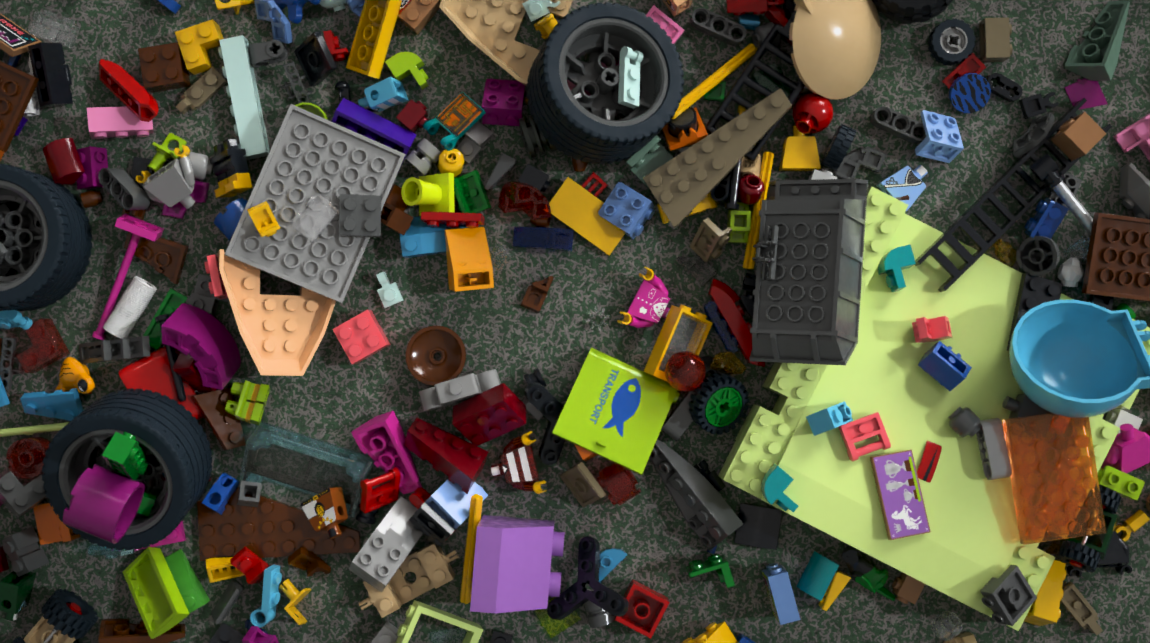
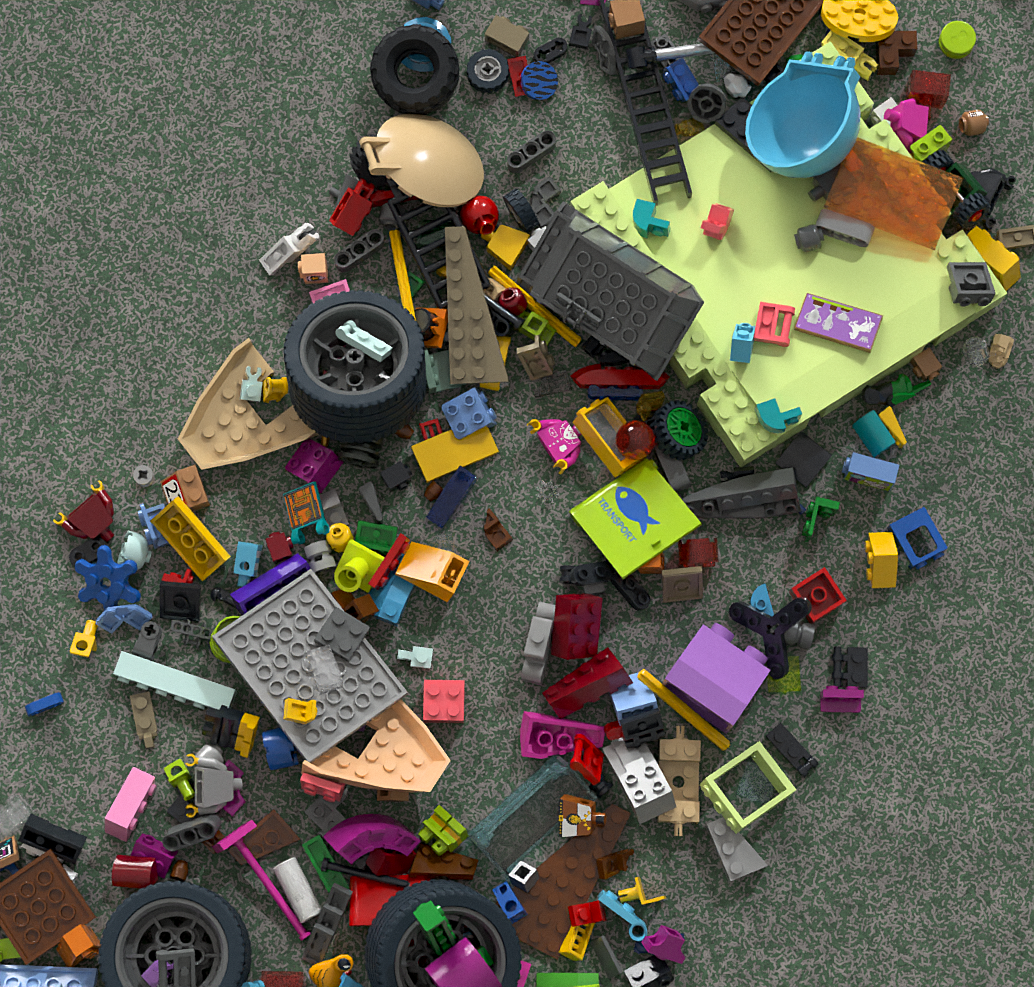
camera: 65 degrees left, 10 degrees down
(128, 90) = (108, 777): red brick -> none
(163, 68) = (106, 737): reddish brown brick -> none
(195, 42) = (100, 695): yellow brick -> none
(408, 63) = (232, 524): lime brick -> none
(425, 345) = (488, 635): reddish brown dish -> none
(519, 465) = (634, 629): torso -> none
(524, 197) = (407, 492): clear red brick -> none
(749, 21) = (370, 222): dark azure slope -> none
(905, 184) = (584, 174): light blue torso -> none
(929, 461) = (825, 284): red sticker -> none
(941, 139) = (562, 122): light blue bracket -> none
(945, 365) = (753, 227): blue brick -> none
(1132, 524) = (976, 154): yellow bar -> none

